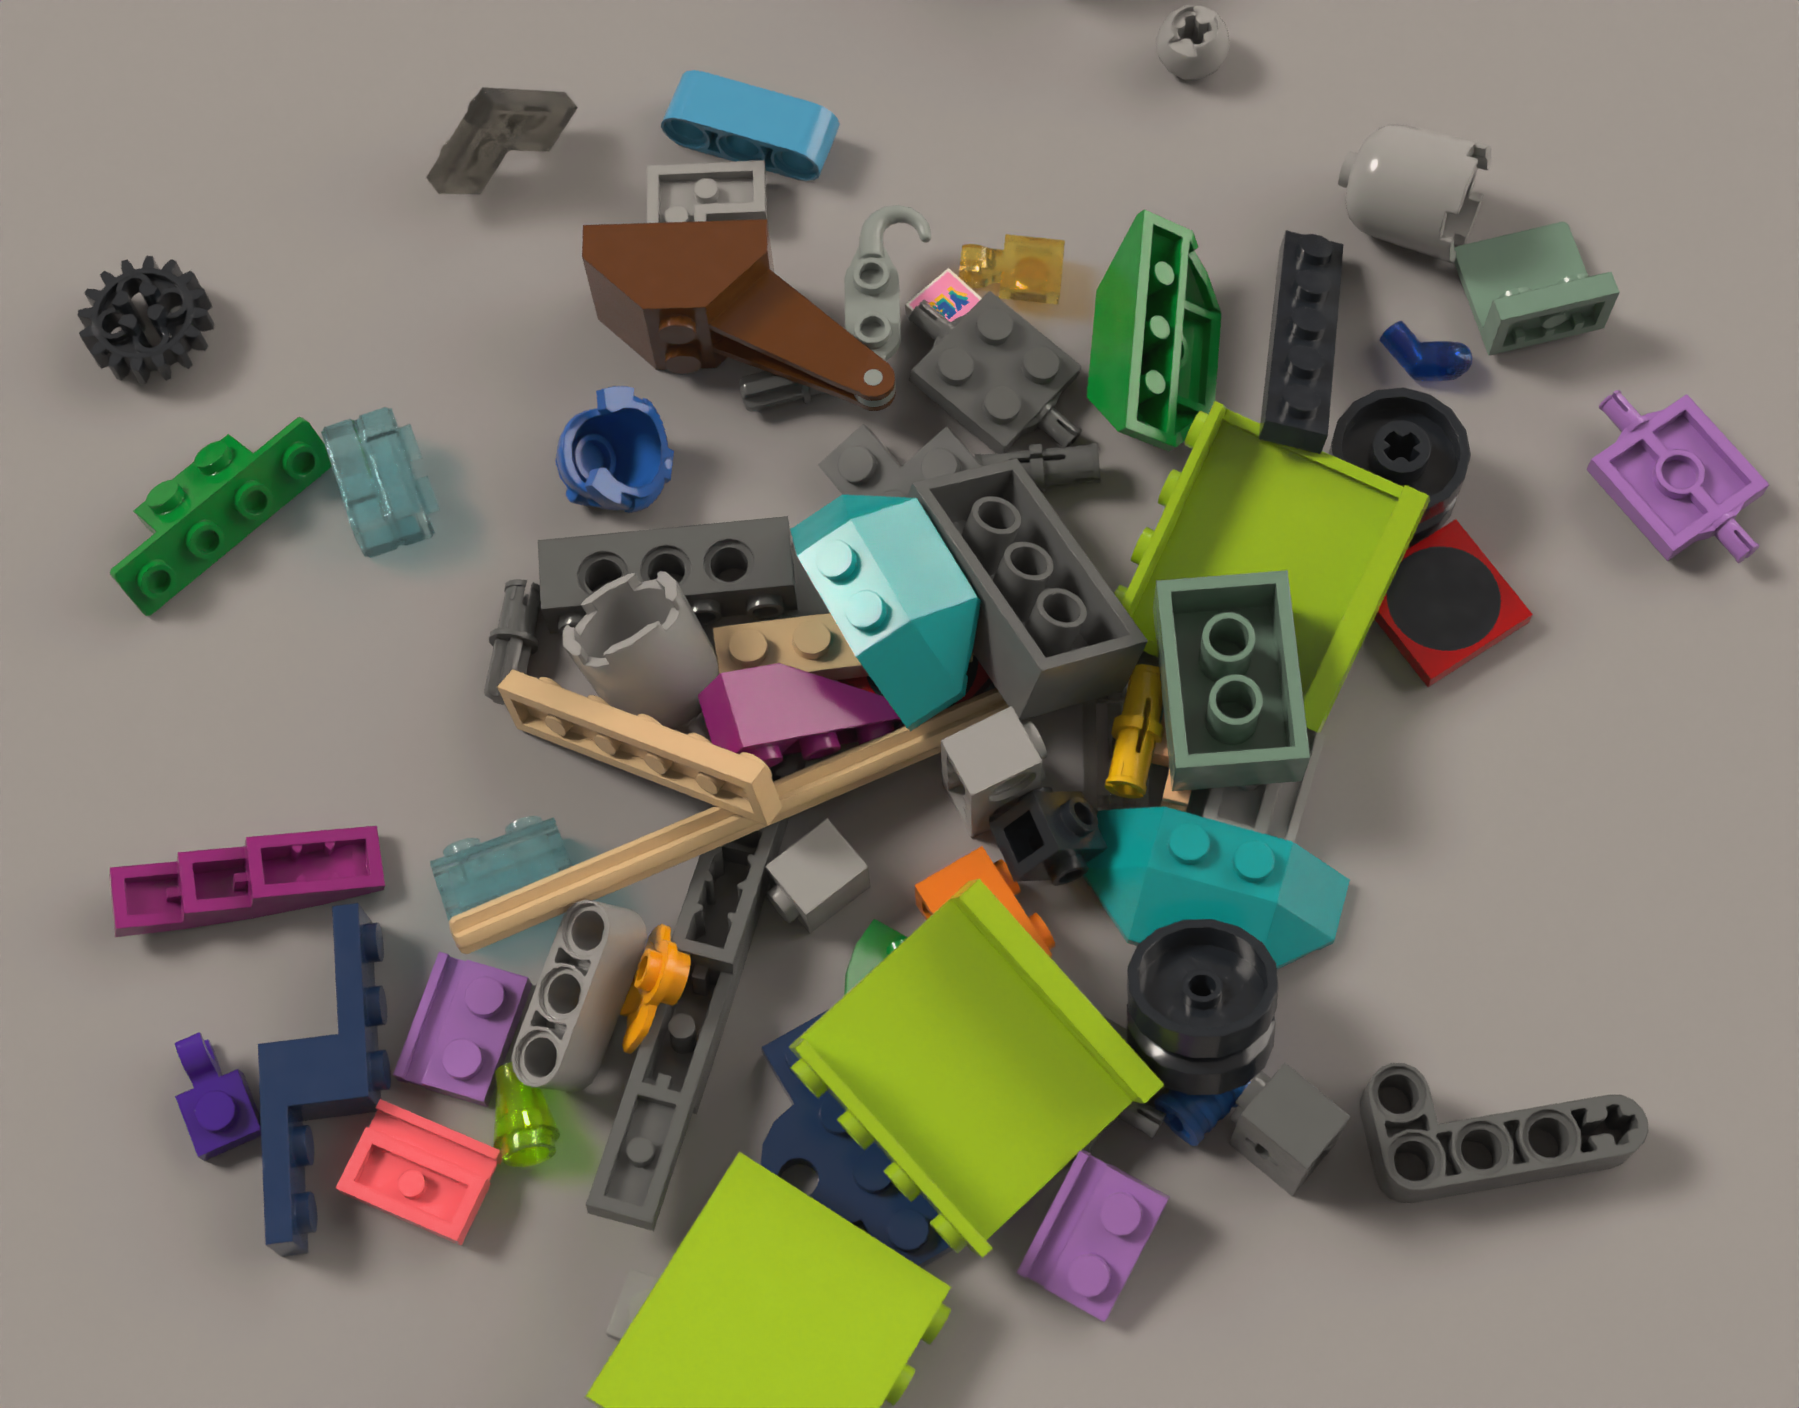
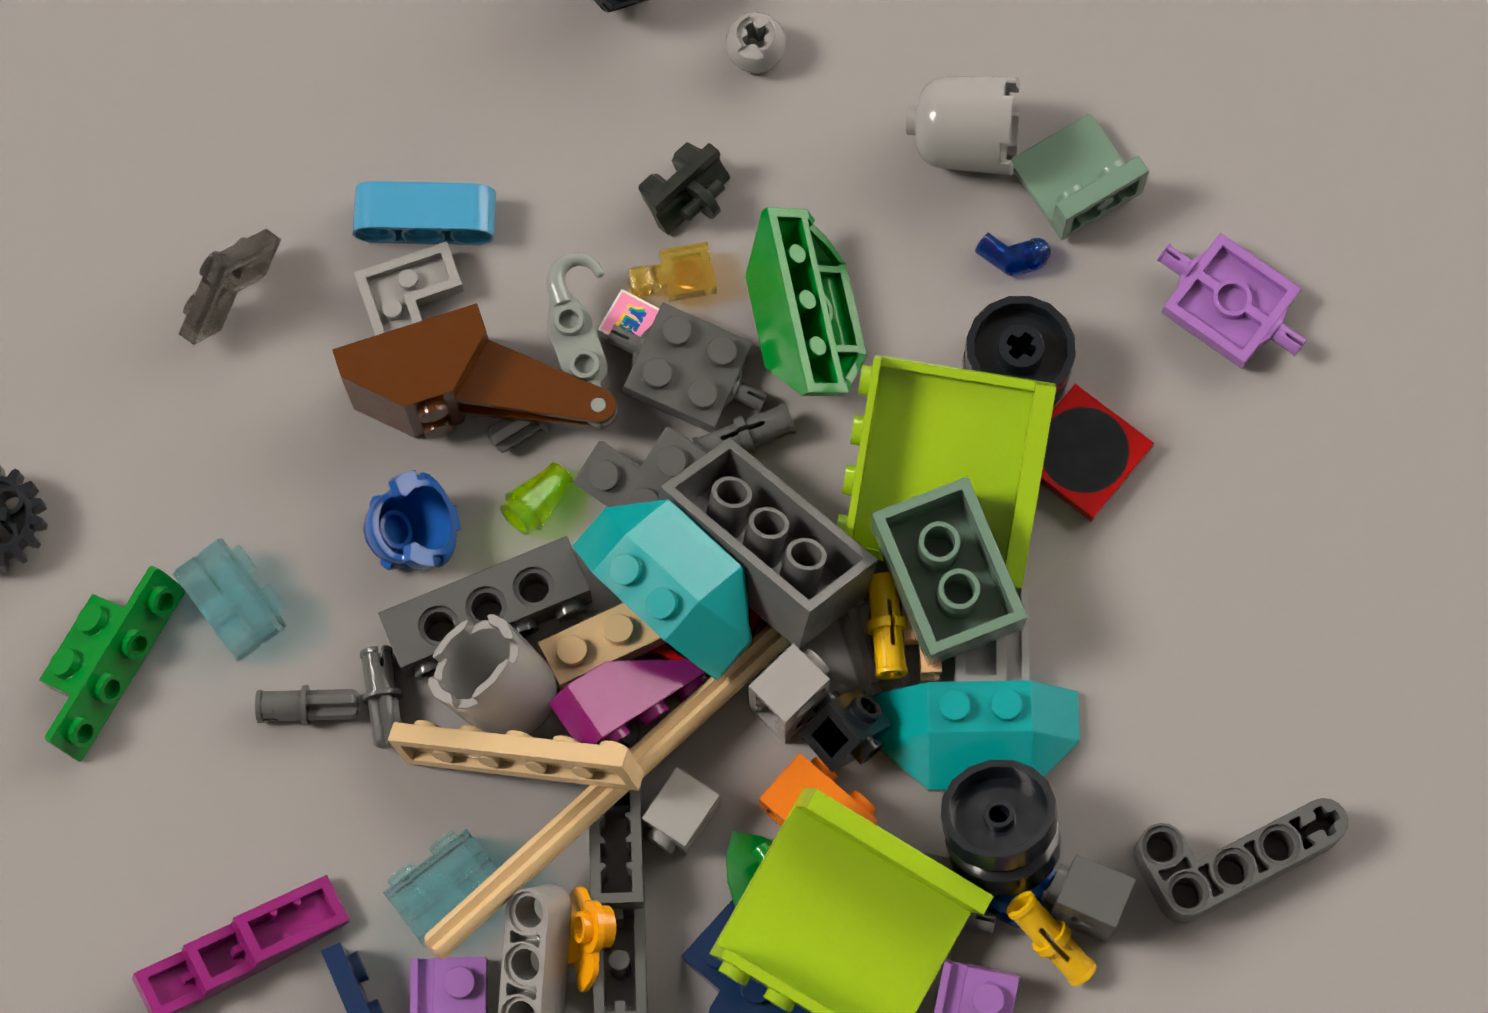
camera: 20 degrees left, 5 degrees up
(422, 626) = (306, 705): none -> dark grey axle
(768, 471) = (534, 500): none -> clear neon green cone
(1060, 178) = (689, 190): none -> pearl dark grey hips
(1240, 1201) = (1070, 957): none -> yellow pin
(1302, 343) = (920, 279): black plate -> none

